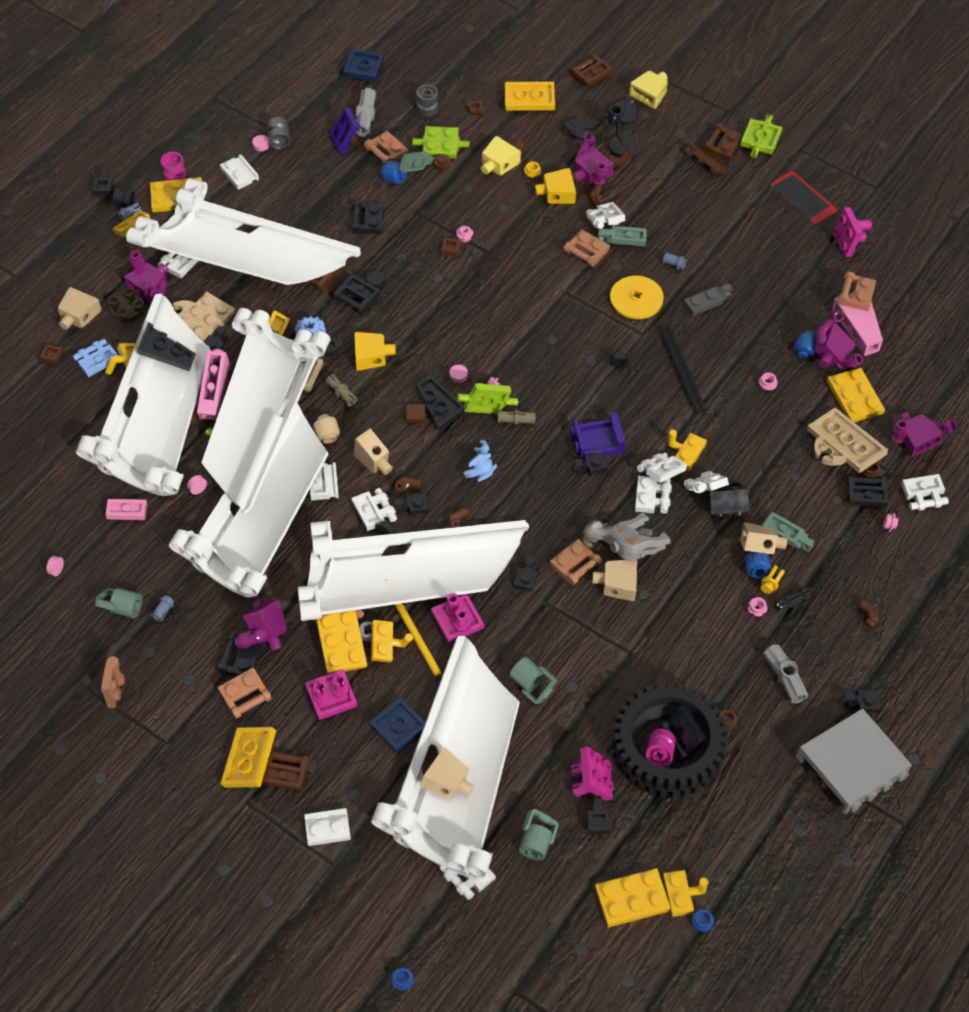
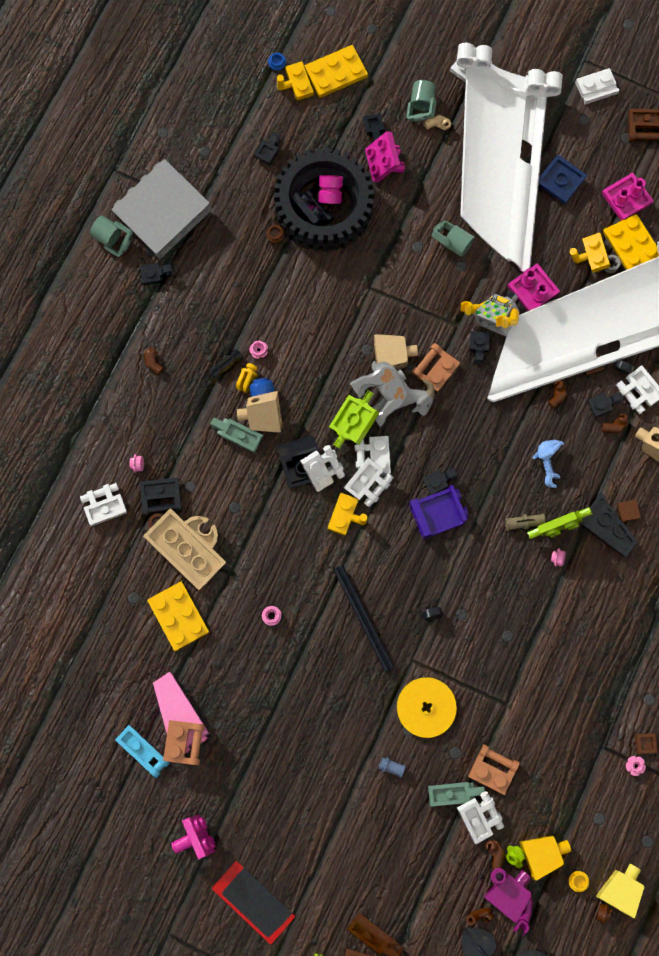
camera: 170 degrees right, 20 degrees up
(418, 639) = (562, 263): yellow bar -> none
(447, 776) = (509, 131): tan torso -> none
(458, 373) = (596, 568): bright pink tile -> none
(503, 592) = (496, 313): none -> torso
(518, 813) = (438, 121): none -> tan arm
(581, 189) = (515, 856): none -> lime plate
(669, 518) = (354, 419): none -> lime plate
(707, 299) = (348, 719): dark grey hinge -> none
(726, 812) = (267, 150): none -> black plate
(781, 664) = (232, 292): light grey piece -> none
(805, 345) = (234, 669): blue head -> none
(835, 345) = (203, 664): magenta torso -> none
(894, 302) = (141, 750): none -> medium azure plate
(915, 747) = (109, 232): none -> sand green piece
(920, 432) = (110, 573): magenta torso -> none

